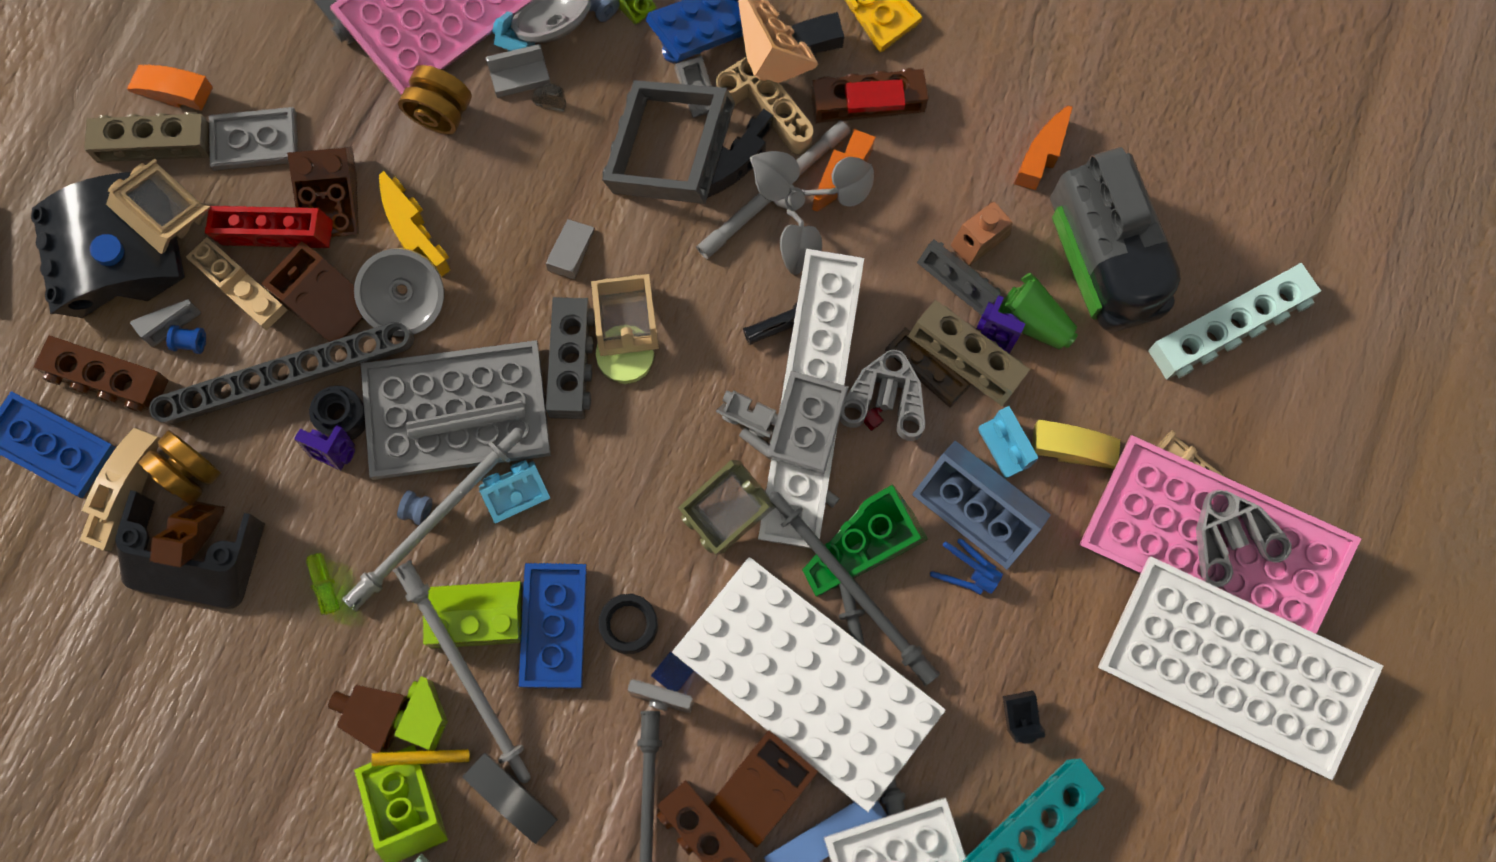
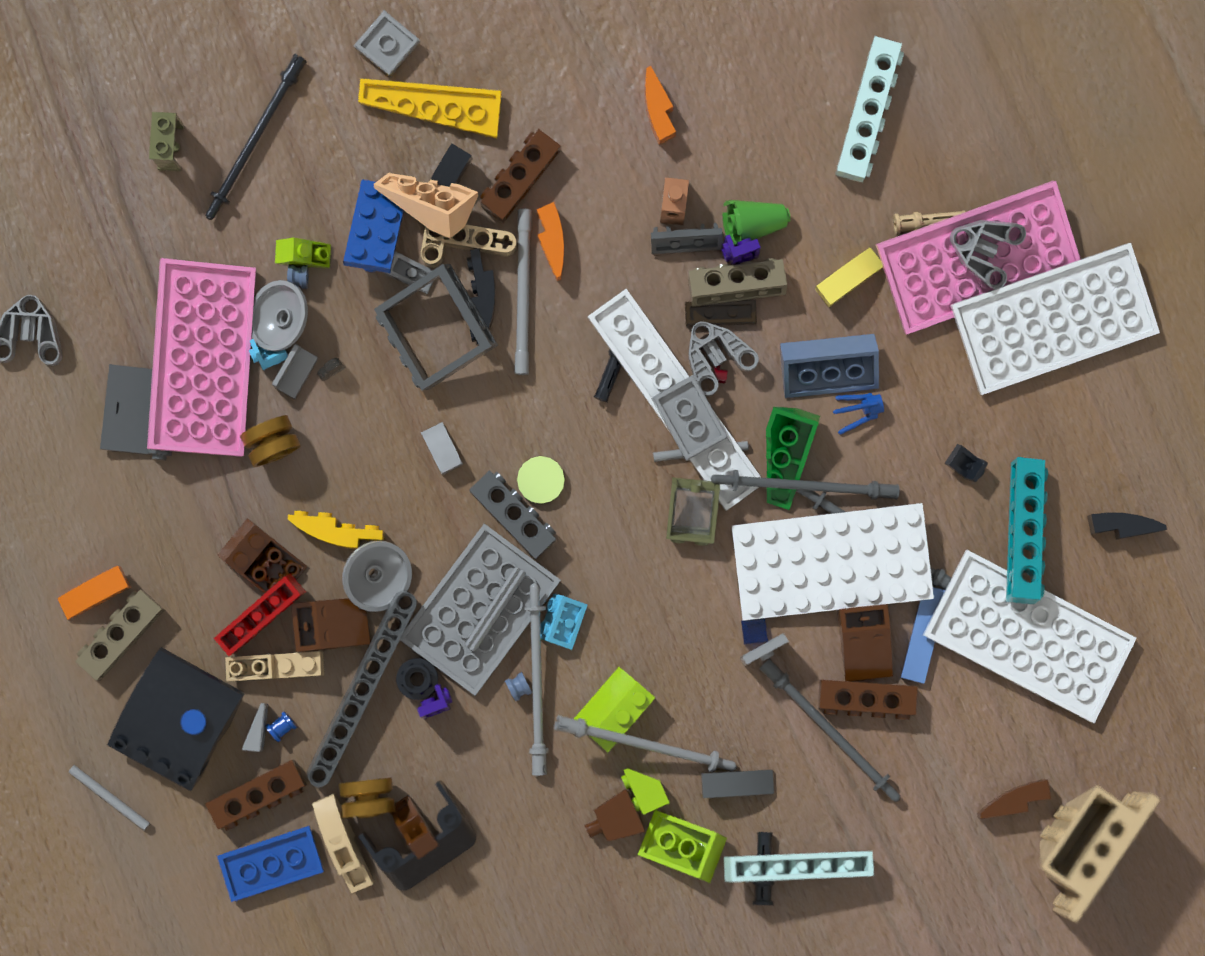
camera: 45 degrees left, 10 degrees up
(155, 205) = (189, 669): tan window -> none
(252, 138) = (179, 572): light grey tile -> none
(322, 584) = (512, 778): clear neon green axle -> none
(420, 757) = (667, 812): yellow bar -> none
(553, 626) = (663, 671): blue plate -> none
(617, 603) = (703, 647): black tyre -> none
(624, 315) = (519, 457): window -> none
(737, 411) = (639, 450): light grey hinge -> none
(774, 180) = (534, 291): light grey plant -> none
(875, 96) = (529, 176): red tile -> none
(1008, 443) = (810, 315): medium azure bracket -> none
(1115, 242) = (759, 133): piece -> none

